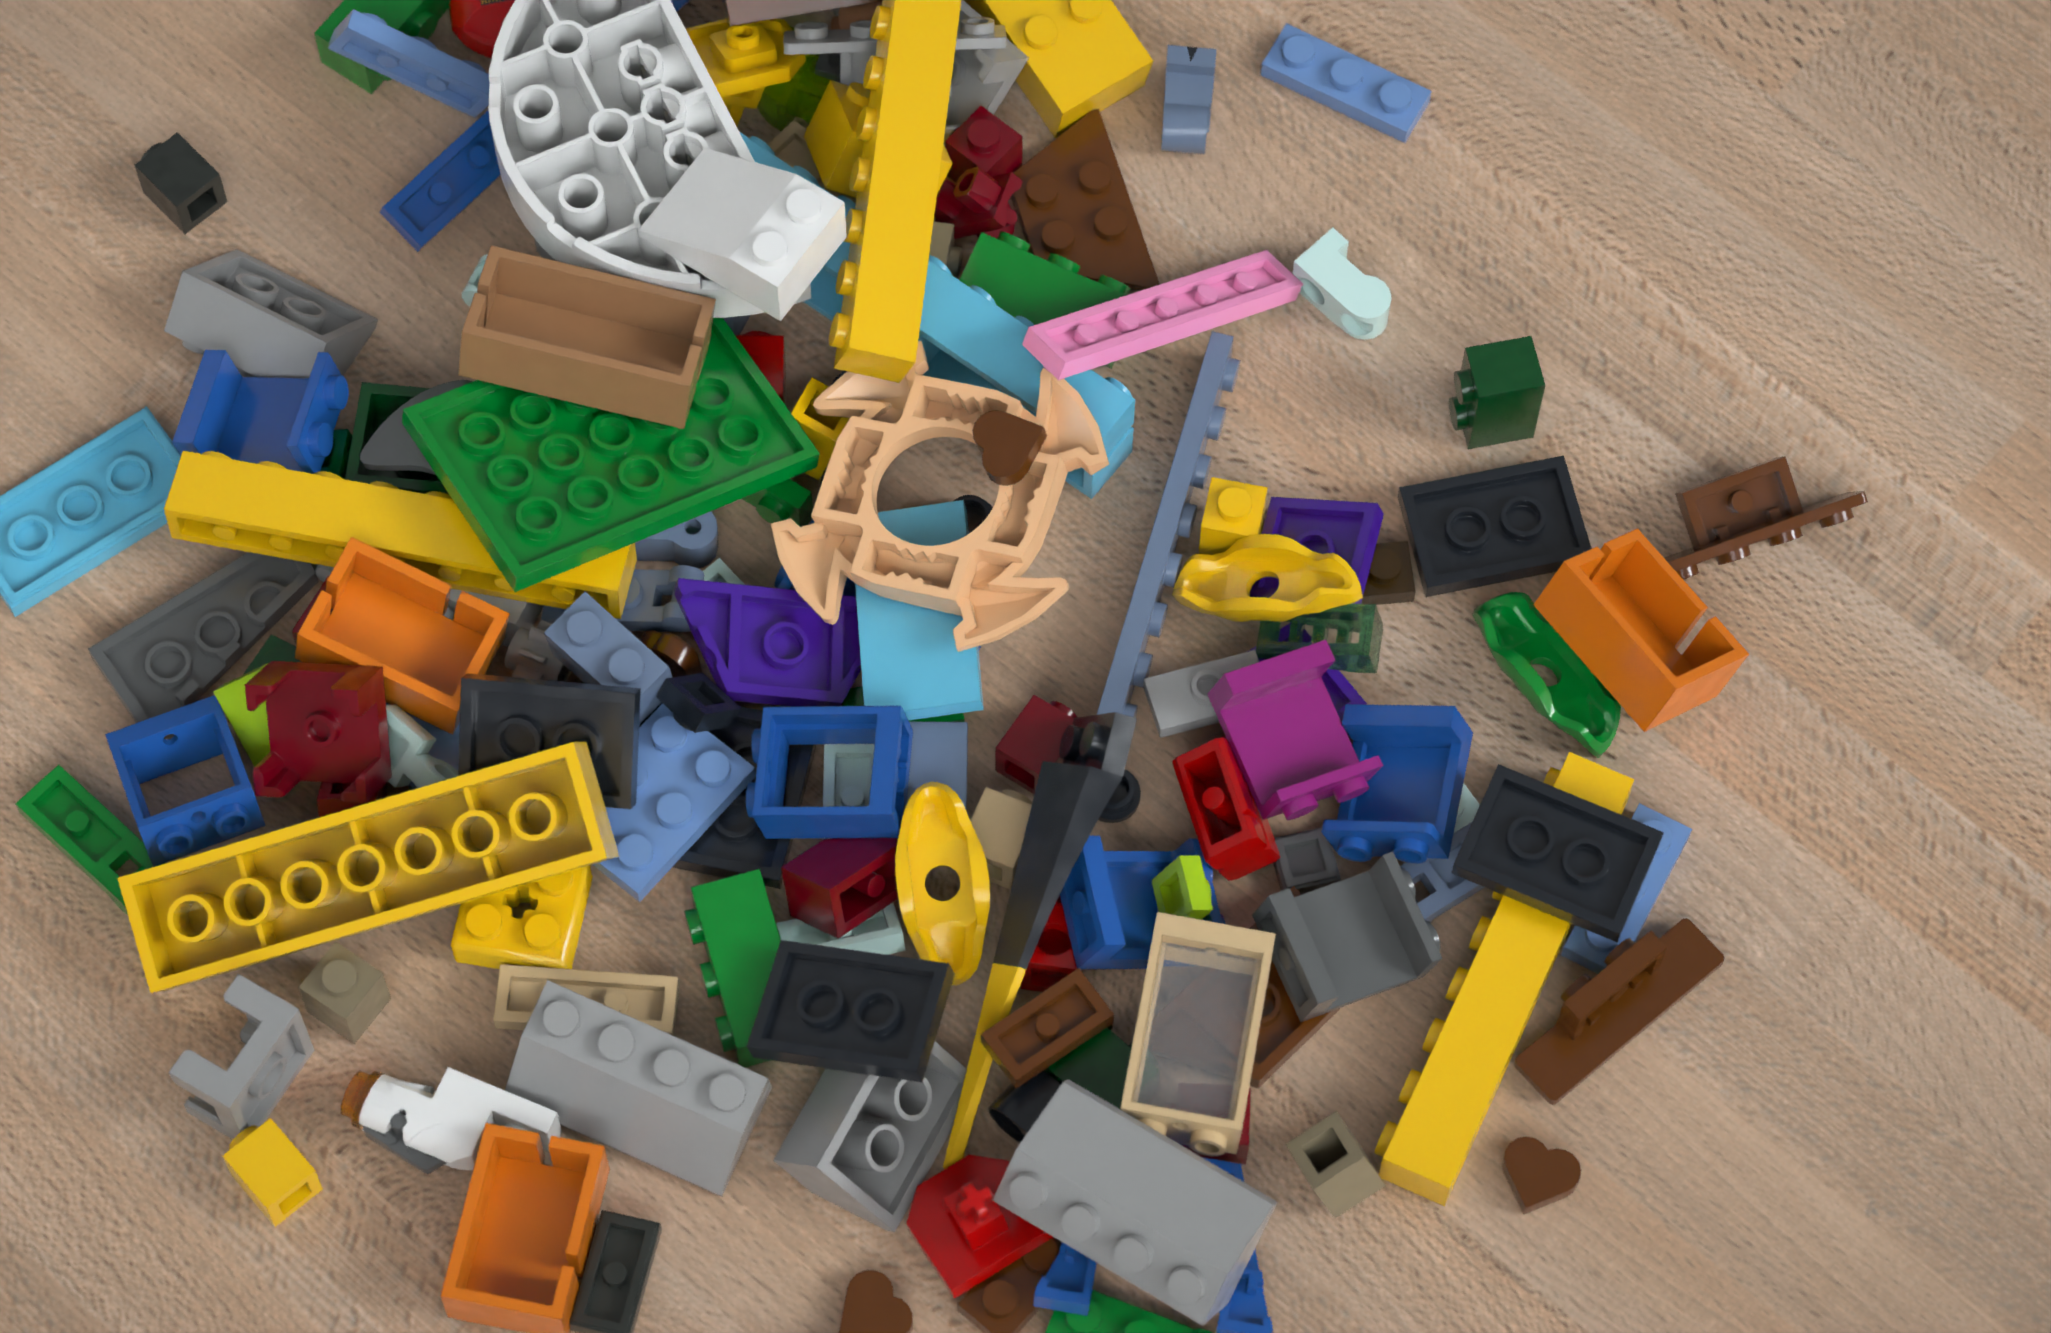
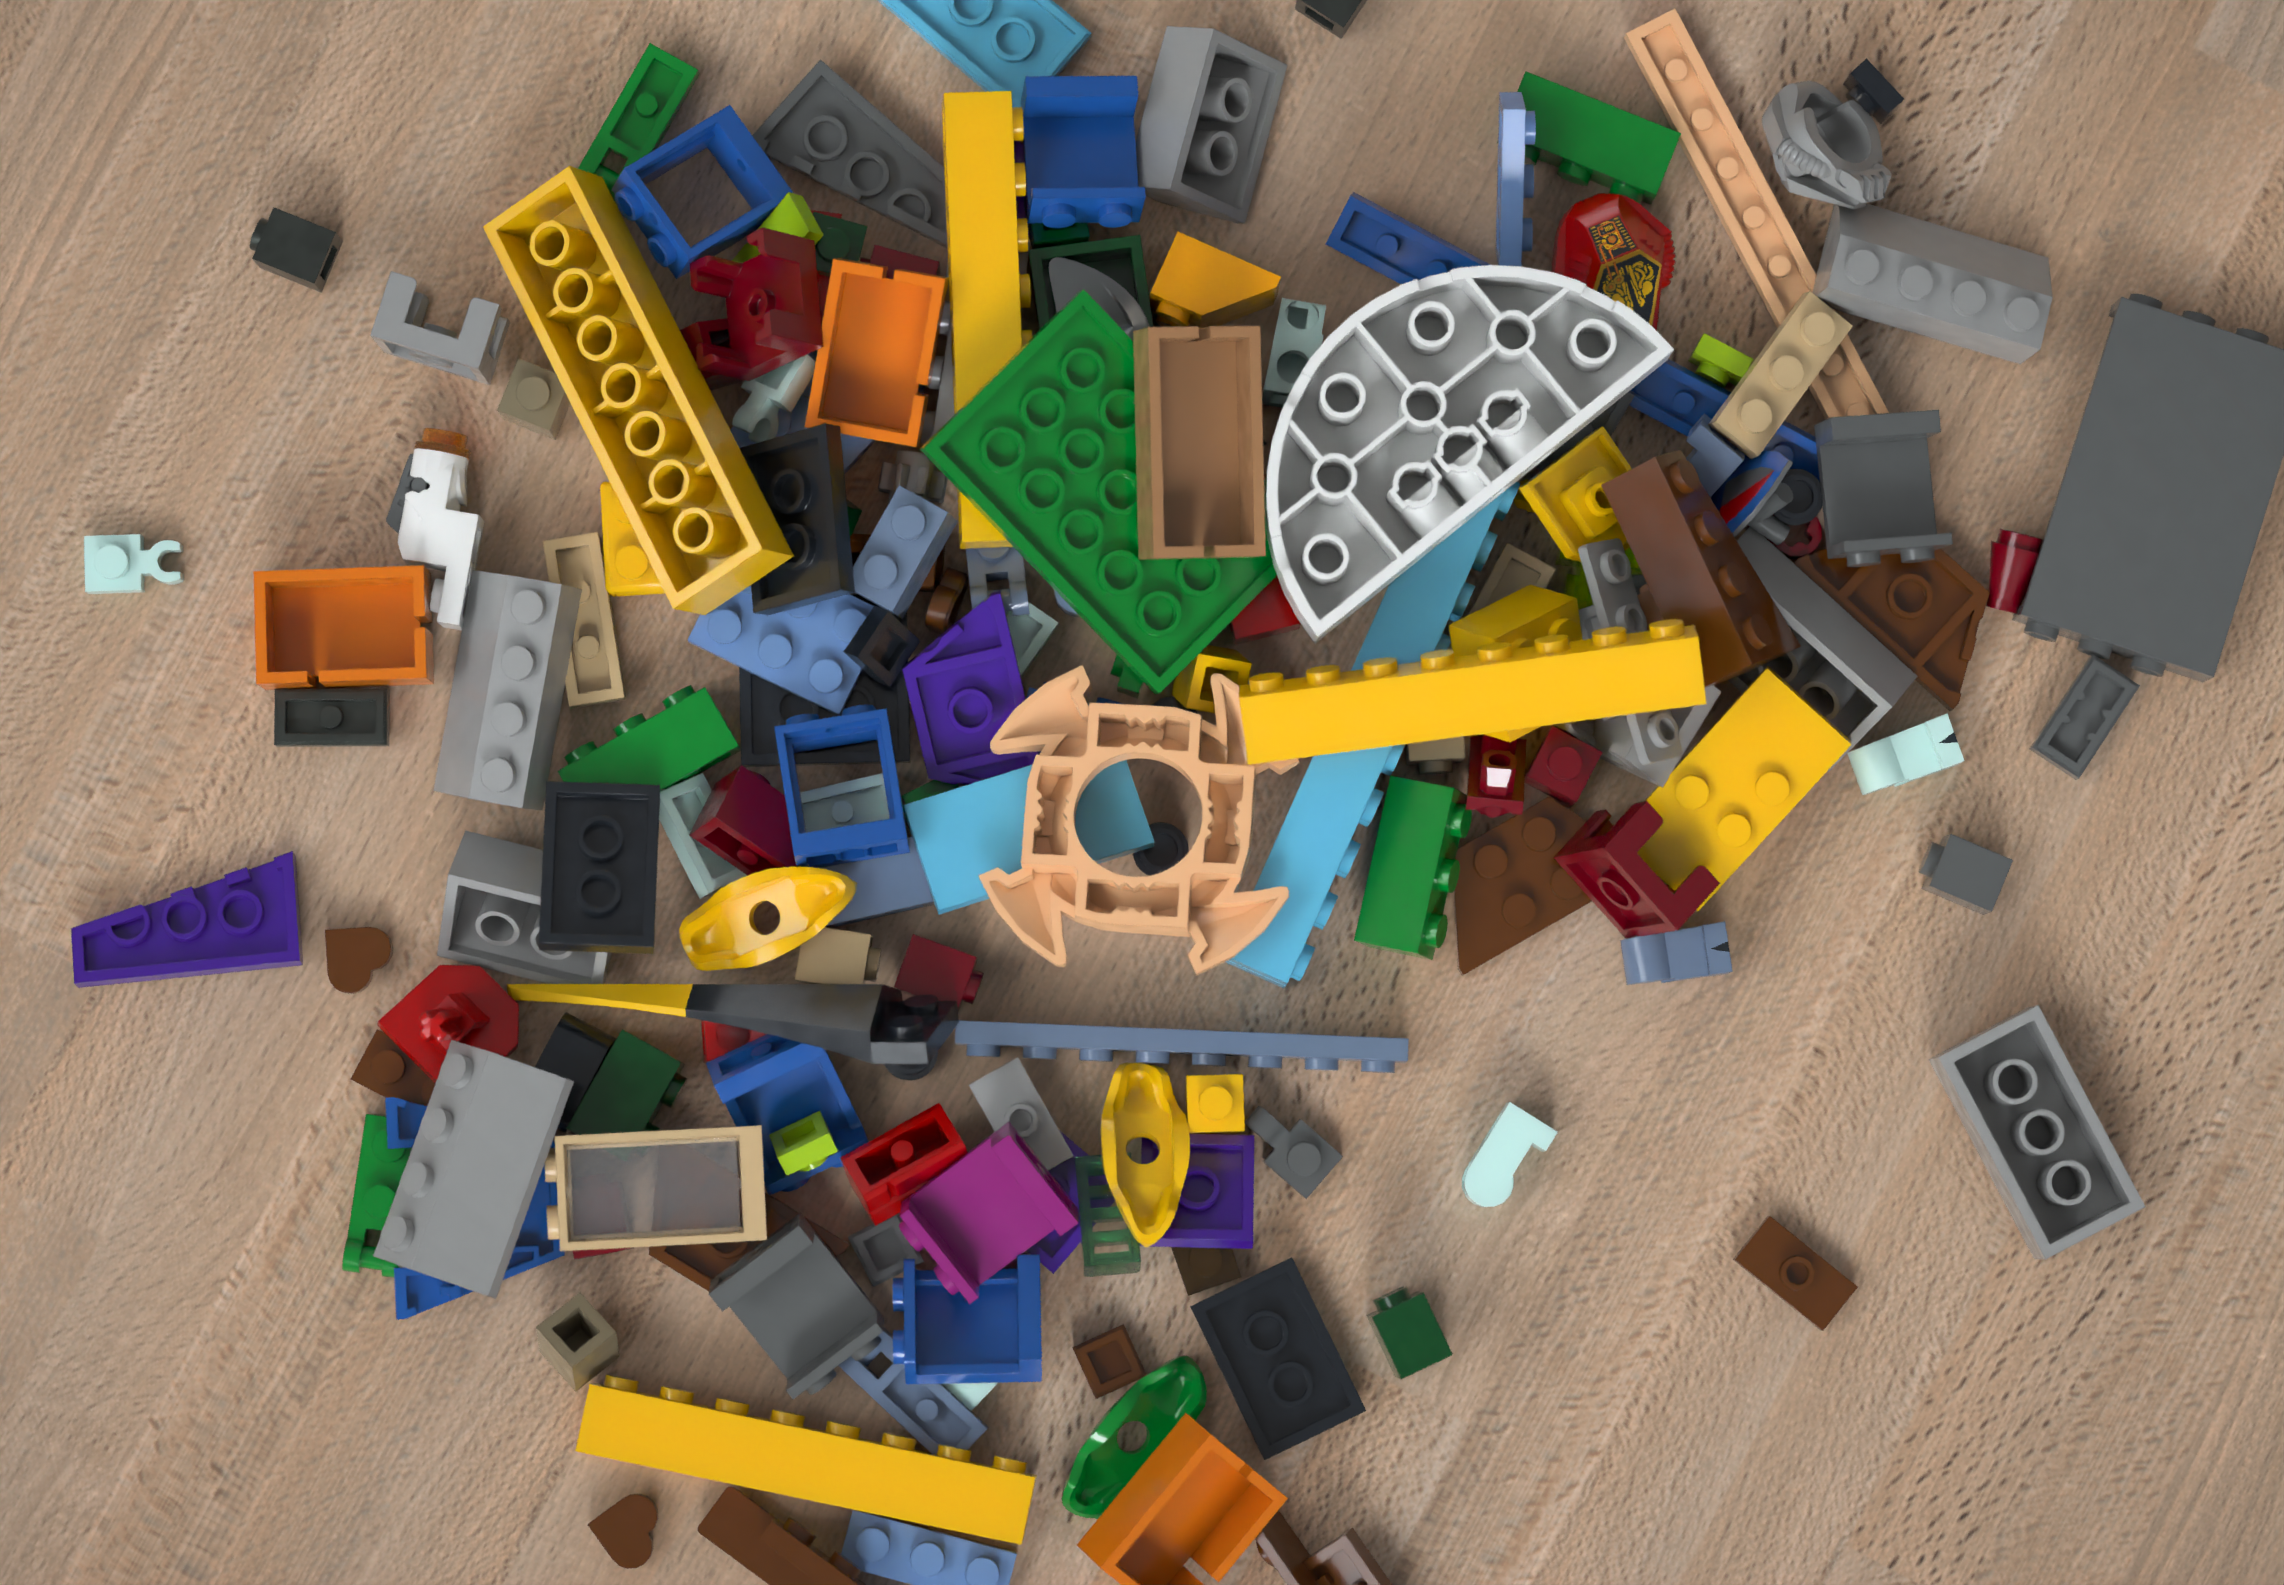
camera: 70 degrees right, 20 degrees up
(110, 1199) = (295, 249): none -> pearl dark grey brick
(271, 1171) = (356, 382): yellow brick -> none
(423, 333) = (1208, 286): none -> light orange slope
(748, 228) = (1333, 564): white slope -> none
(1007, 445) = (1184, 874): reddish brown tile -> none
(1047, 1028) = (633, 1050): reddish brown plate -> none
(1105, 107) = (1621, 883): none -> dark red panel
(1161, 314) = (1397, 988): bright pink plate -> none
(1298, 468) = (1298, 1154): none -> dark grey plate
(1345, 83) = (1748, 1108): medium blue plate -> none
(1464, 680) = (1109, 1361): none -> reddish brown tile
(1509, 78) = (1795, 1273): none -> reddish brown plate
(1557, 853) = (918, 1486): black plate -> none

